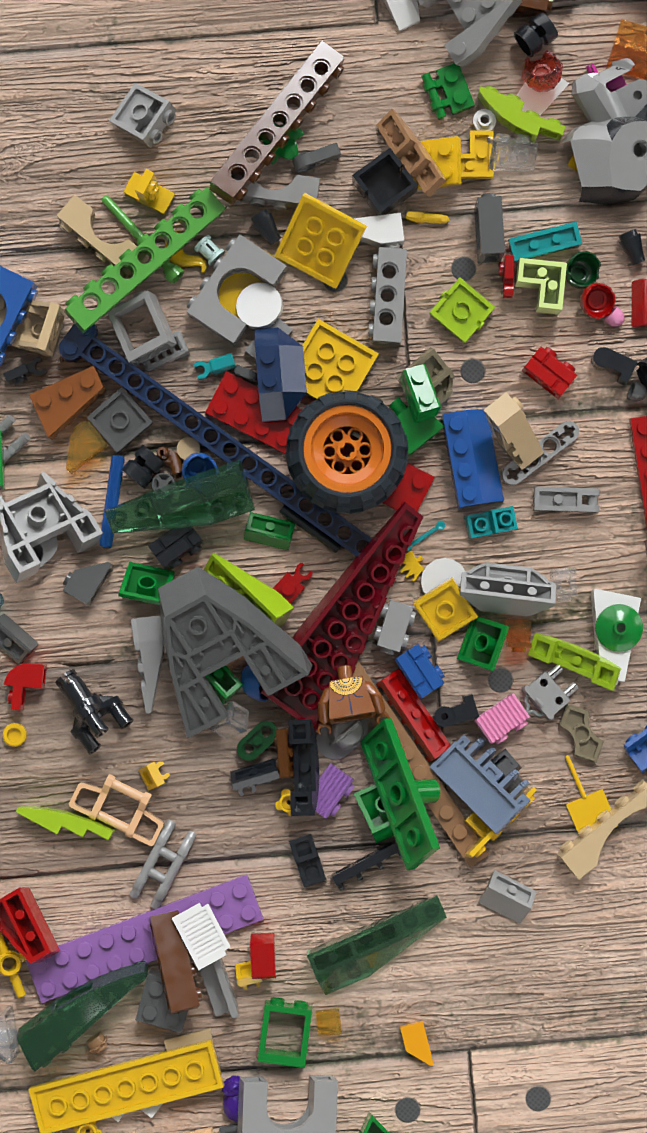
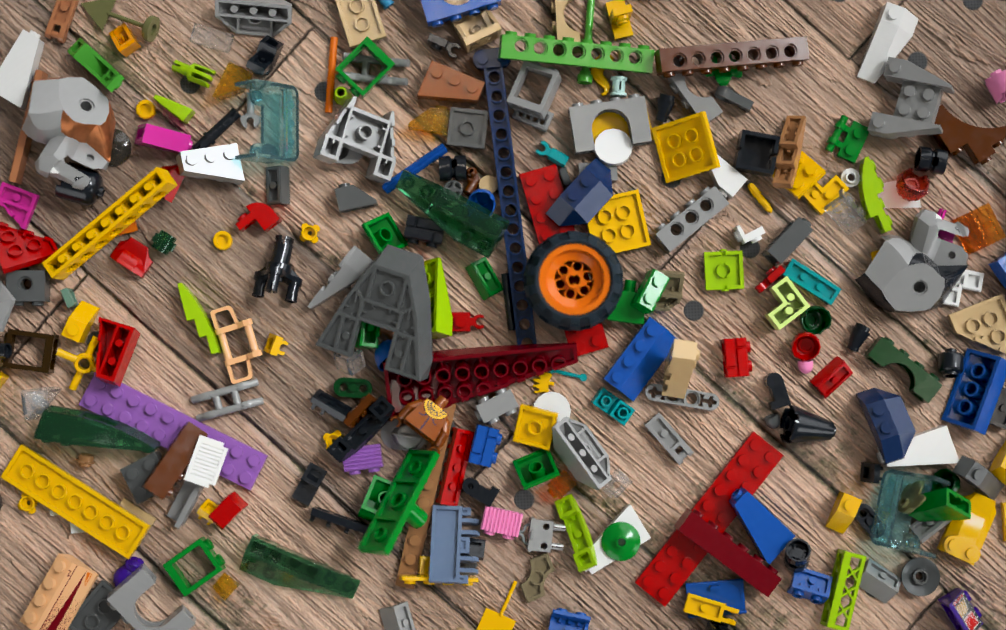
camera: 40 degrees right, 0 degrees up
(74, 649) = (309, 228): none -> yellow plate
(456, 255) = (752, 236): none -> white bracket

